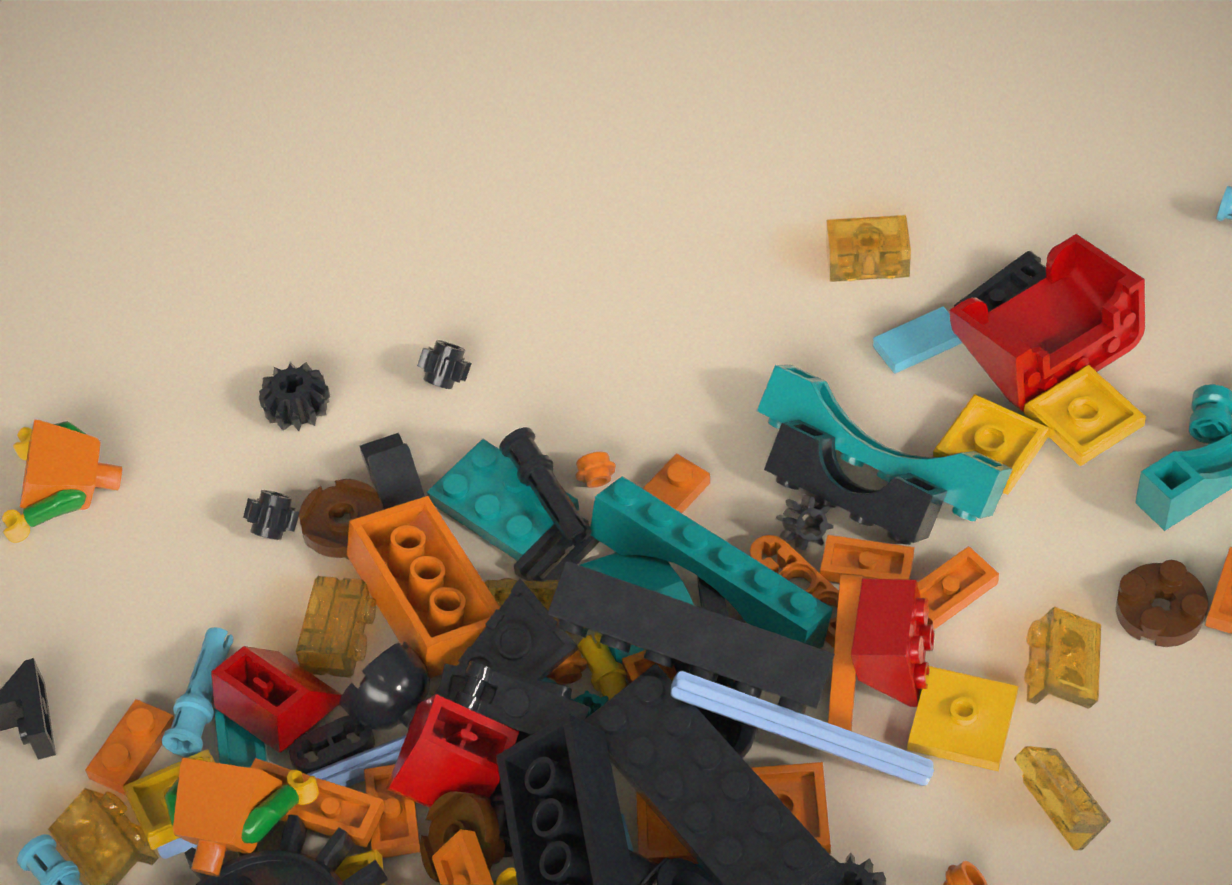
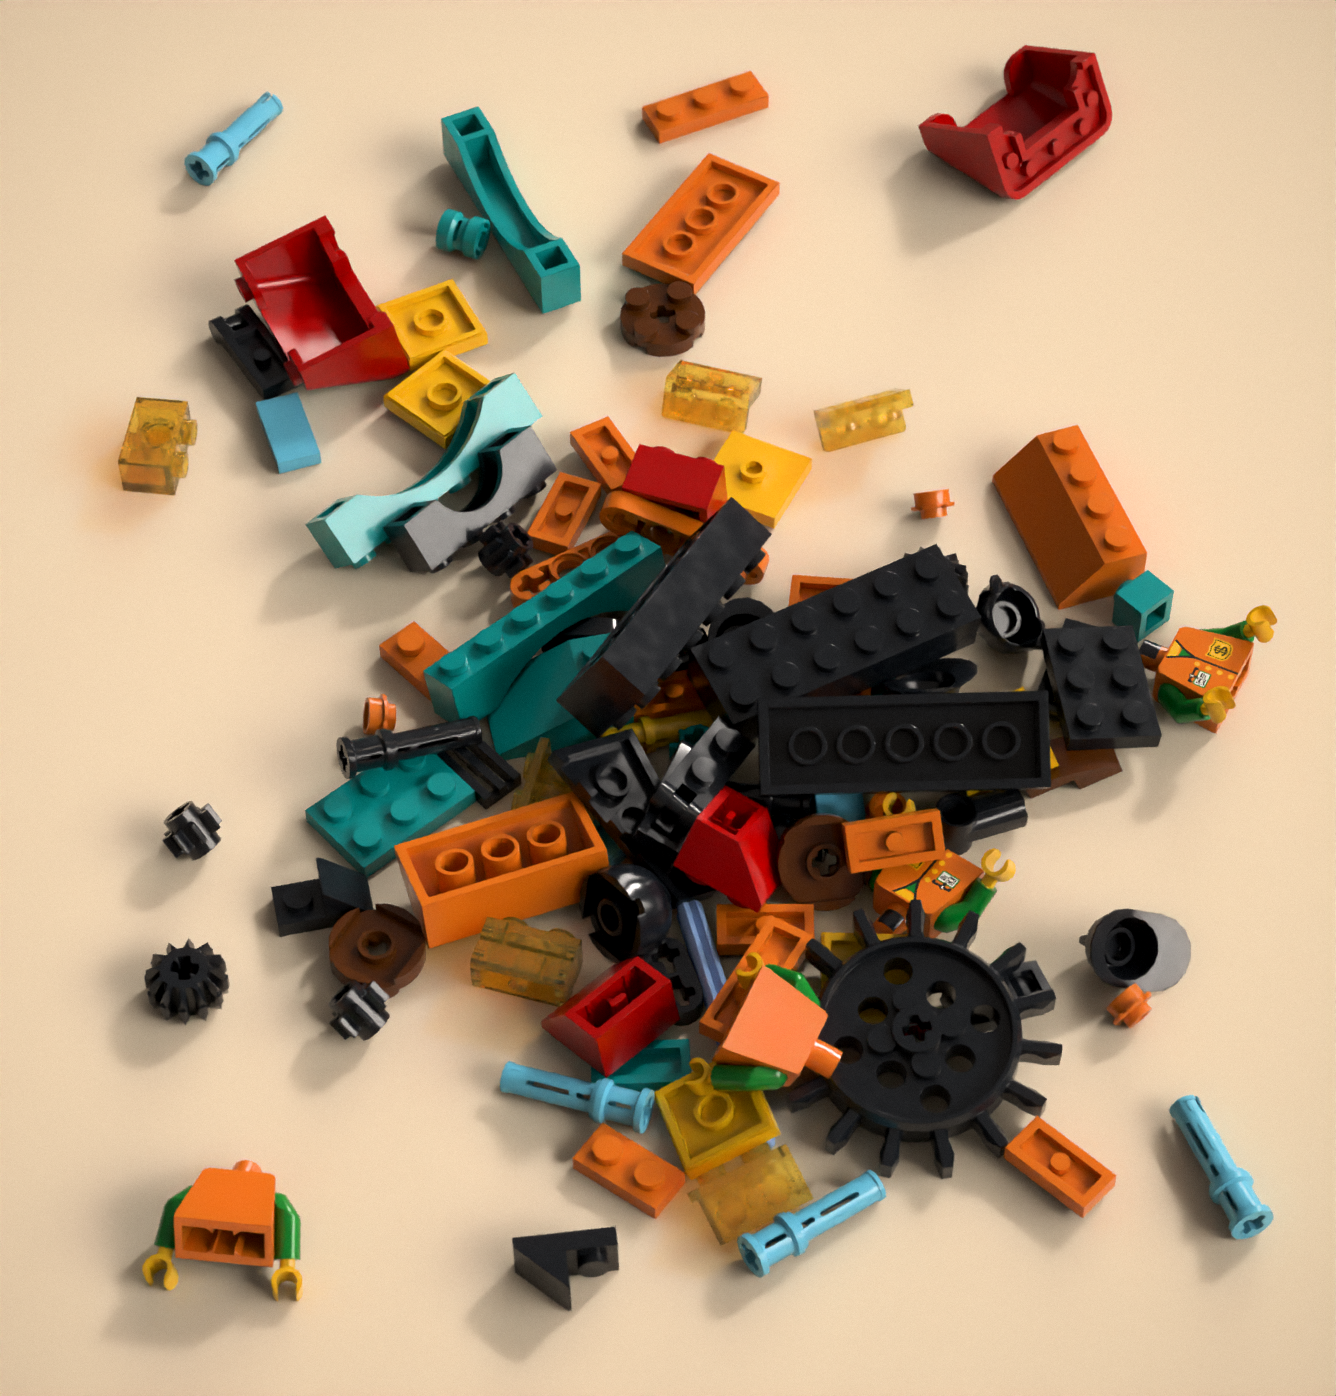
camera: 85 degrees left, 0 degrees up
(801, 728) = (767, 573): light blue axle -> none

